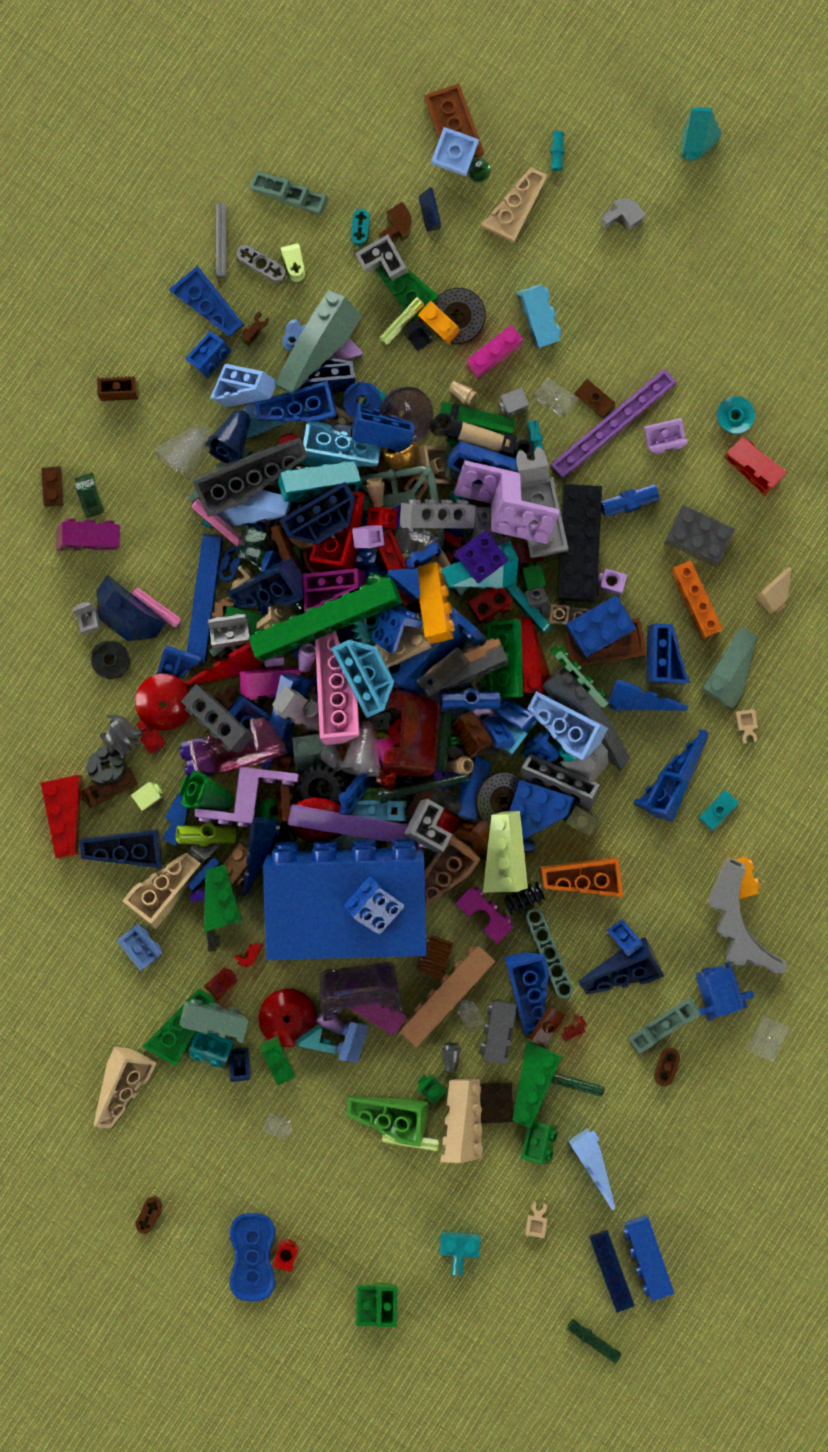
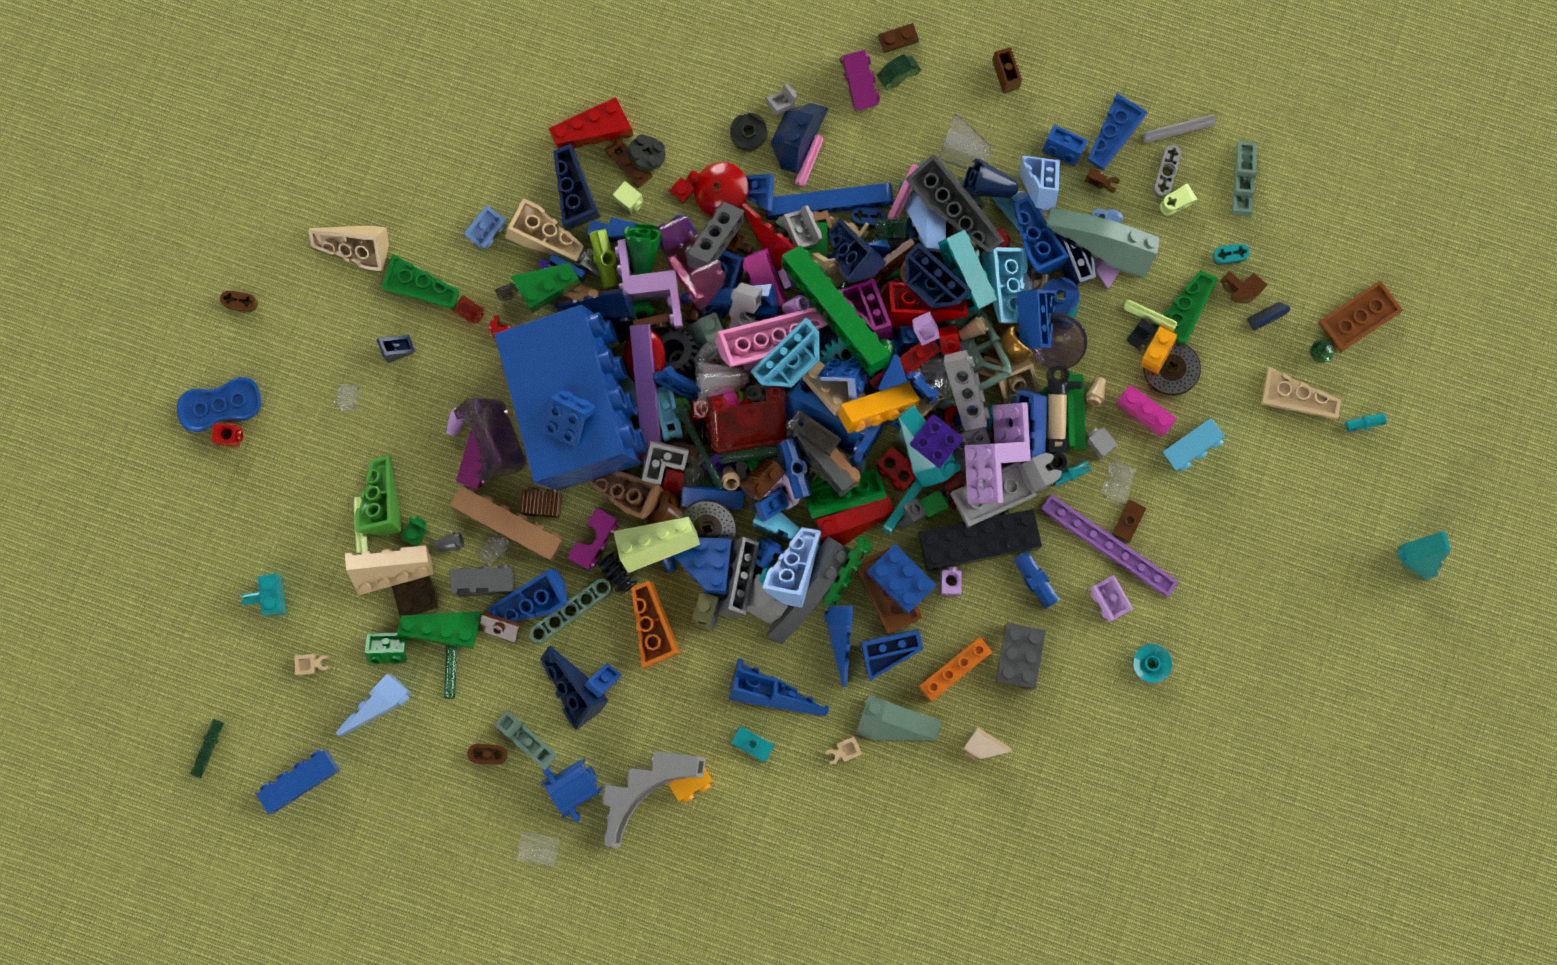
camera: 80 degrees right, 5 degrees down
(120, 736) = (678, 158): dark grey hair -> none
(210, 1049) = (405, 316): teal bracket -> none
(214, 1019) = (432, 309): sand green wedge -> none
(277, 1060) = (407, 379): green brick -> none
(290, 1003) = (462, 386): red dish -> none
(312, 1041) = (433, 405): teal slope -> none
(354, 1039) = (441, 445): medium blue bracket -> none
(376, 1305) = (197, 530): green brick -> none
(382, 253) = (1209, 279): light grey brick -> none
(455, 151) = (1332, 322): light blue plate -> none
(514, 715) = (792, 517): blue plate -> none
(564, 614) = (905, 541): tan slope -> none
(571, 1031) = (500, 651): clear red bracket -> none
(611, 1271) = (277, 749): clear blue plate -> none
(626, 211) = (1325, 505): light grey brick -> none
(755, 465) = (1106, 694): wedge -> none

